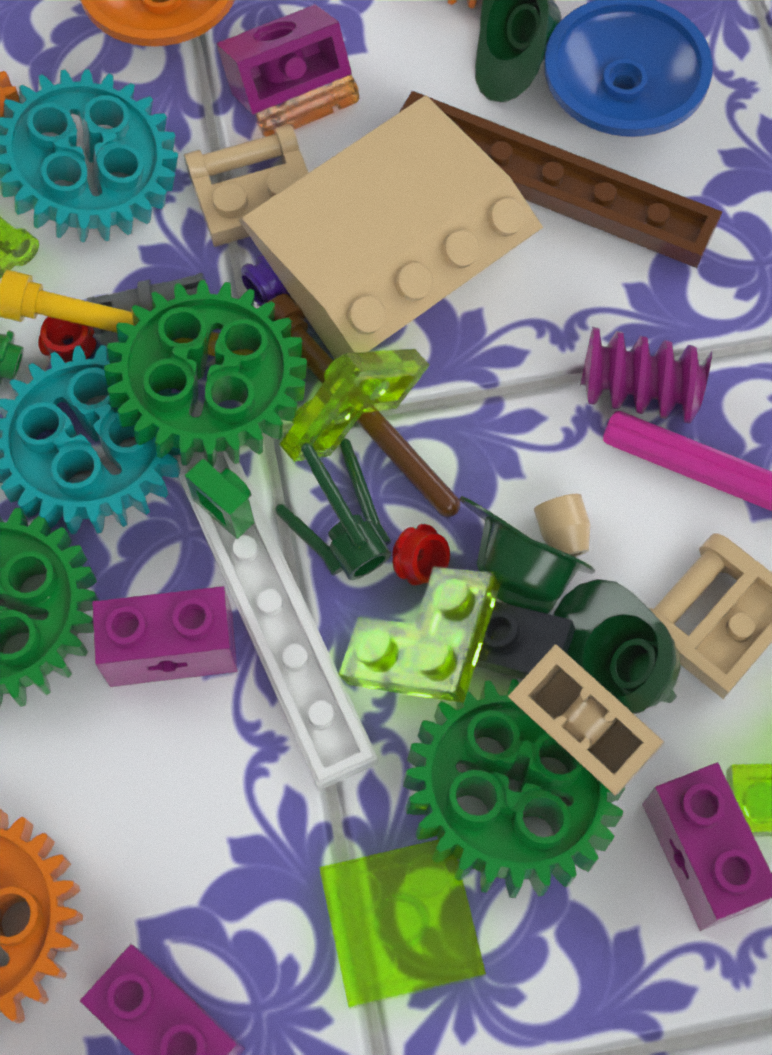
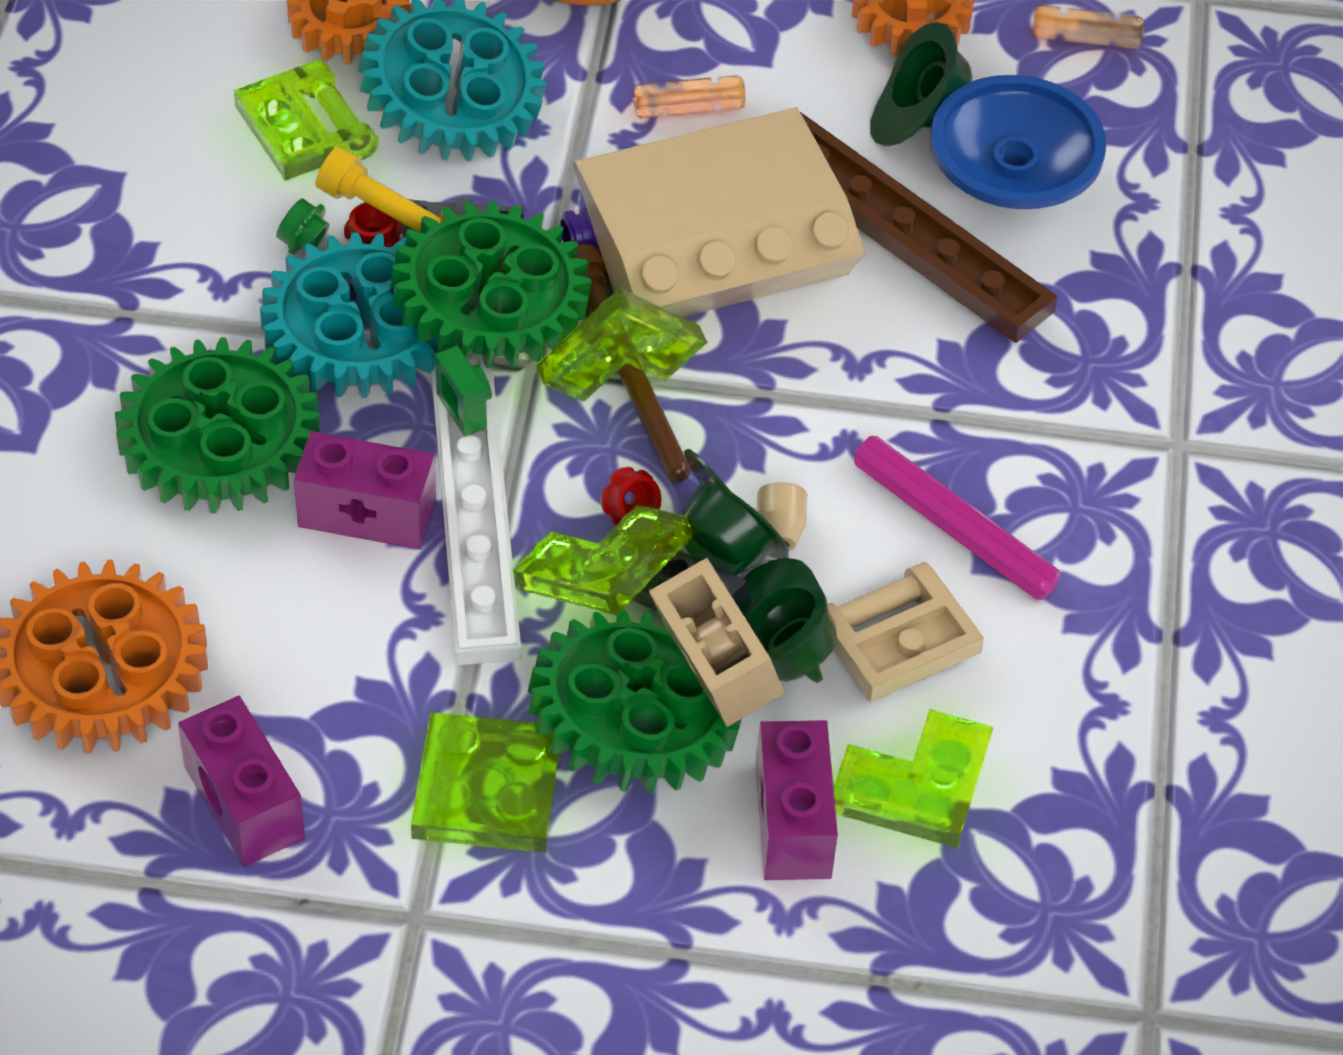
camera: 15 degrees right, 15 degrees down
(230, 200) = (565, 151): tan plate -> none
(284, 58) = (680, 46): magenta brick -> none
(355, 544) = (574, 472): dark green plant -> none
(645, 375) = (913, 415): magenta piece -> none

